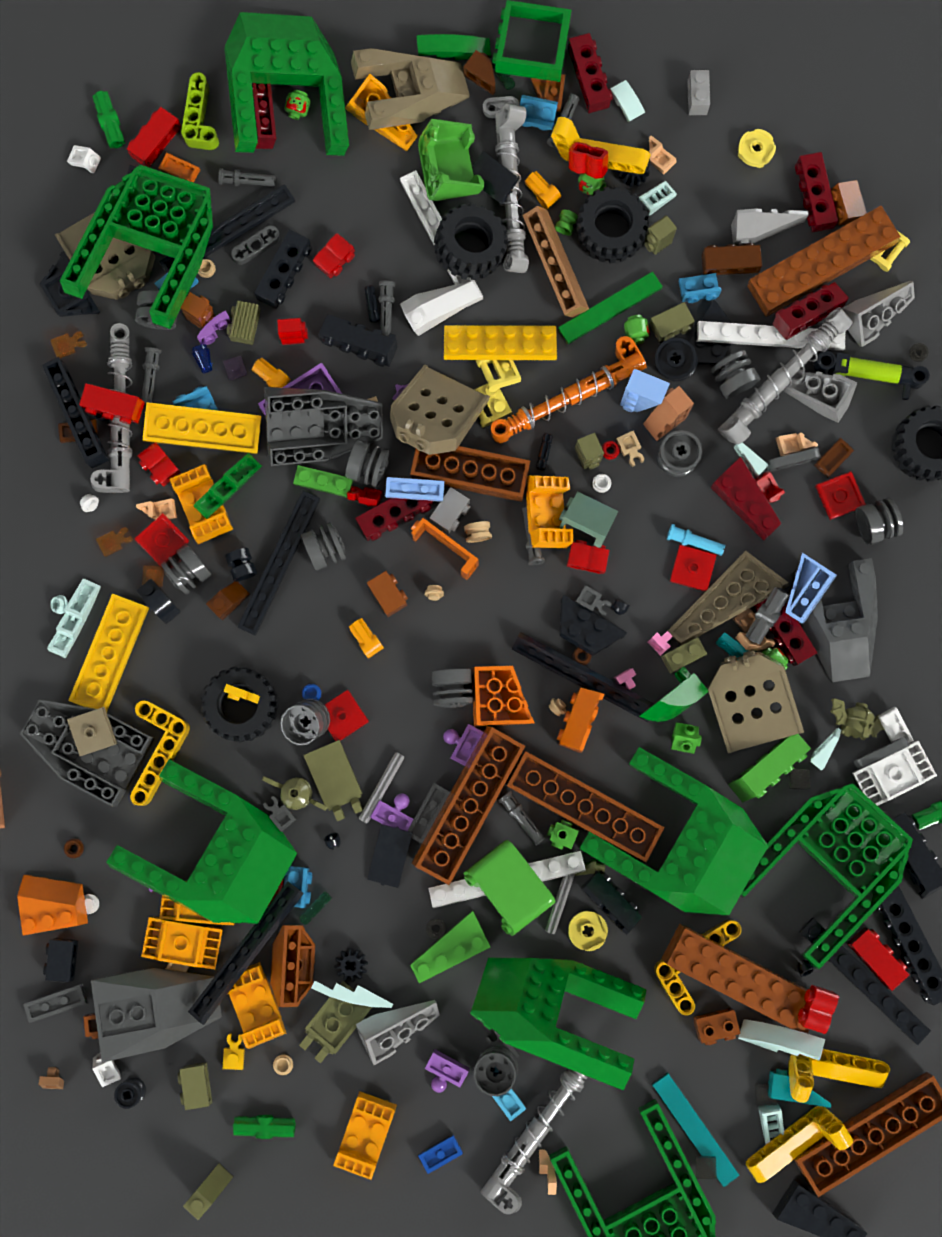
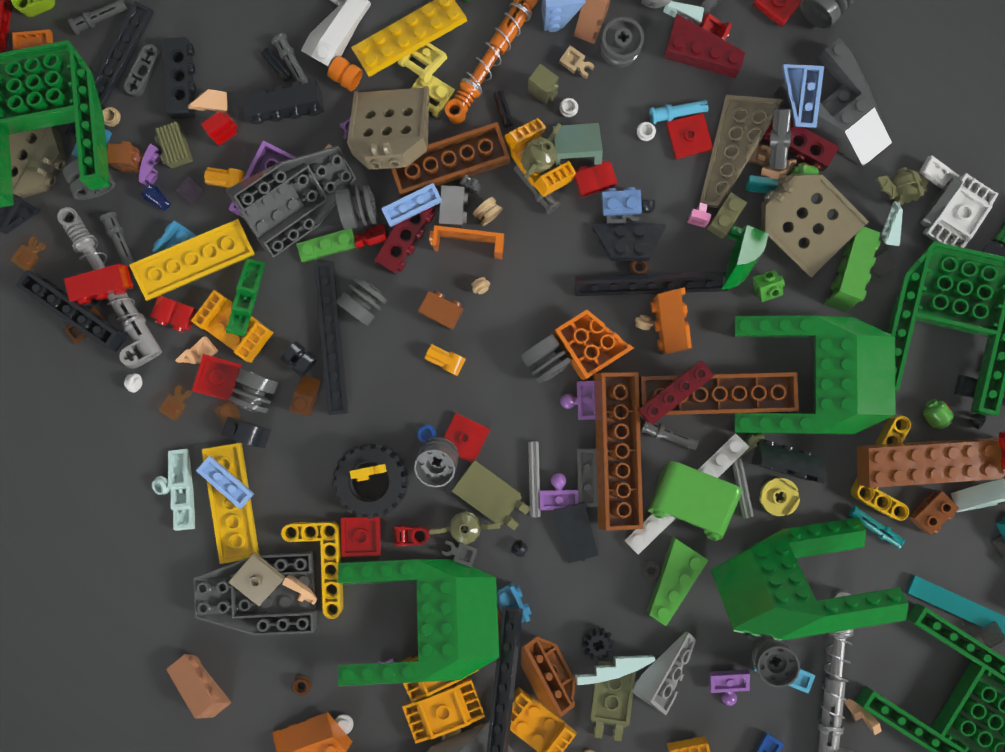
camera: 30 degrees left, 5 degrees up
(115, 633) = (225, 482): none -> light blue plate
(125, 769) = (298, 586): none -> light nougat slope
(202, 748) = (360, 536): none -> red plate
(242, 771) = (406, 535): none -> red piece
(298, 303) = (210, 100): none -> light nougat slope
(315, 908) = (538, 613): clear green axle -> none
(334, 256) = (217, 40): red brick -> none
(424, 342) = (343, 72): none -> orange wheel
(477, 500) = (470, 184): none -> dark grey plate
(545, 781) = (675, 392): none -> dark red brick
(549, 509) = (539, 154): none -> olive helmet
(569, 838) = (719, 429): bright green brick -> none
(598, 591) = (621, 202): none -> medium blue bracket
(610, 444) = (563, 70): red plate -> none
(626, 678) = (688, 264): bright pink tile -> none
(657, 542) = (646, 131): none -> white plate
(669, 1030) = (895, 539): none -> teal pin
(771, 940) = (938, 414): none -> bright green head

